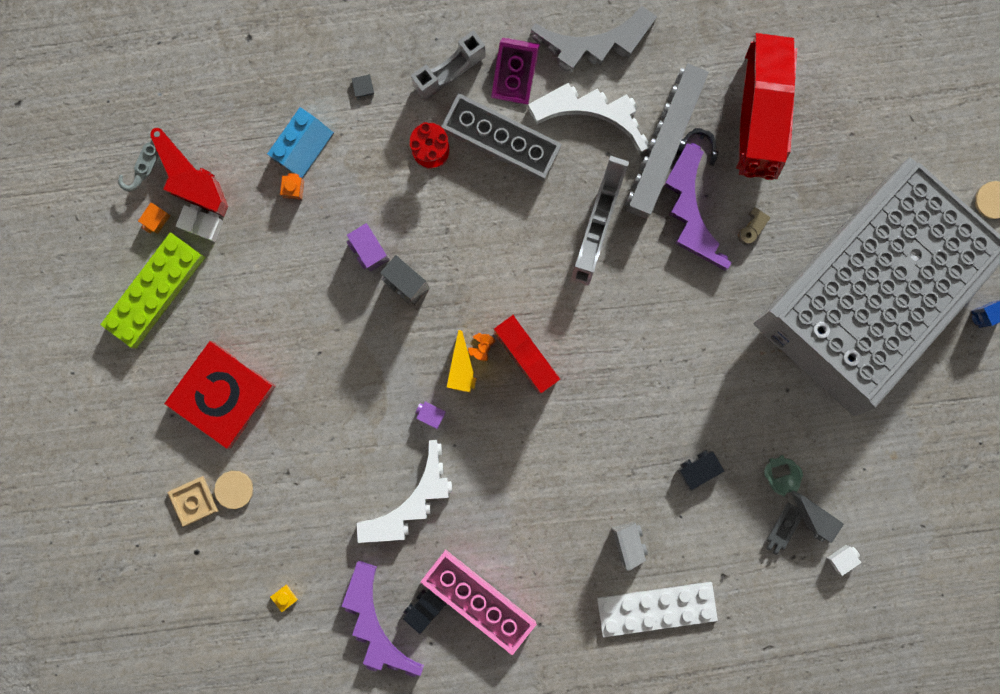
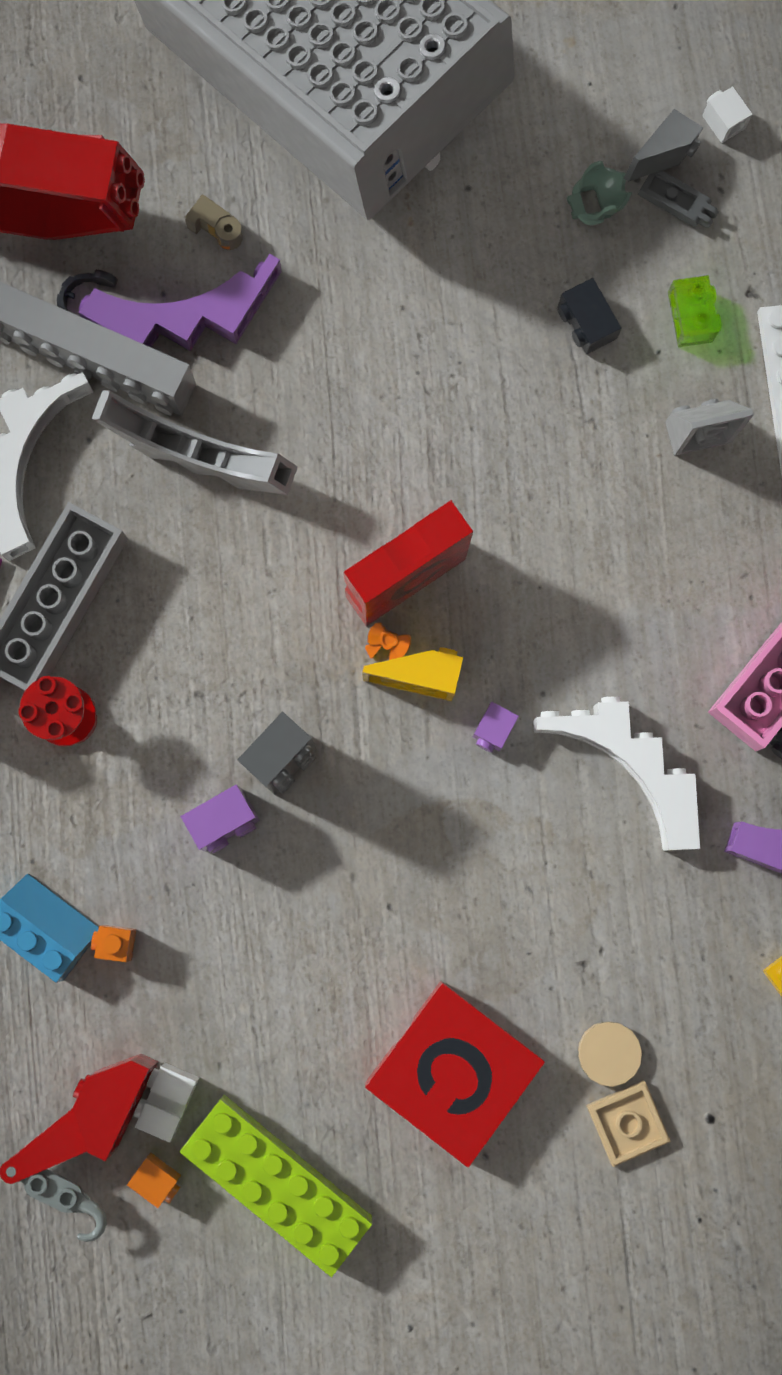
camera: 90 degrees left, 5 degrees down
(707, 538) = (694, 311): none -> clear neon green brick

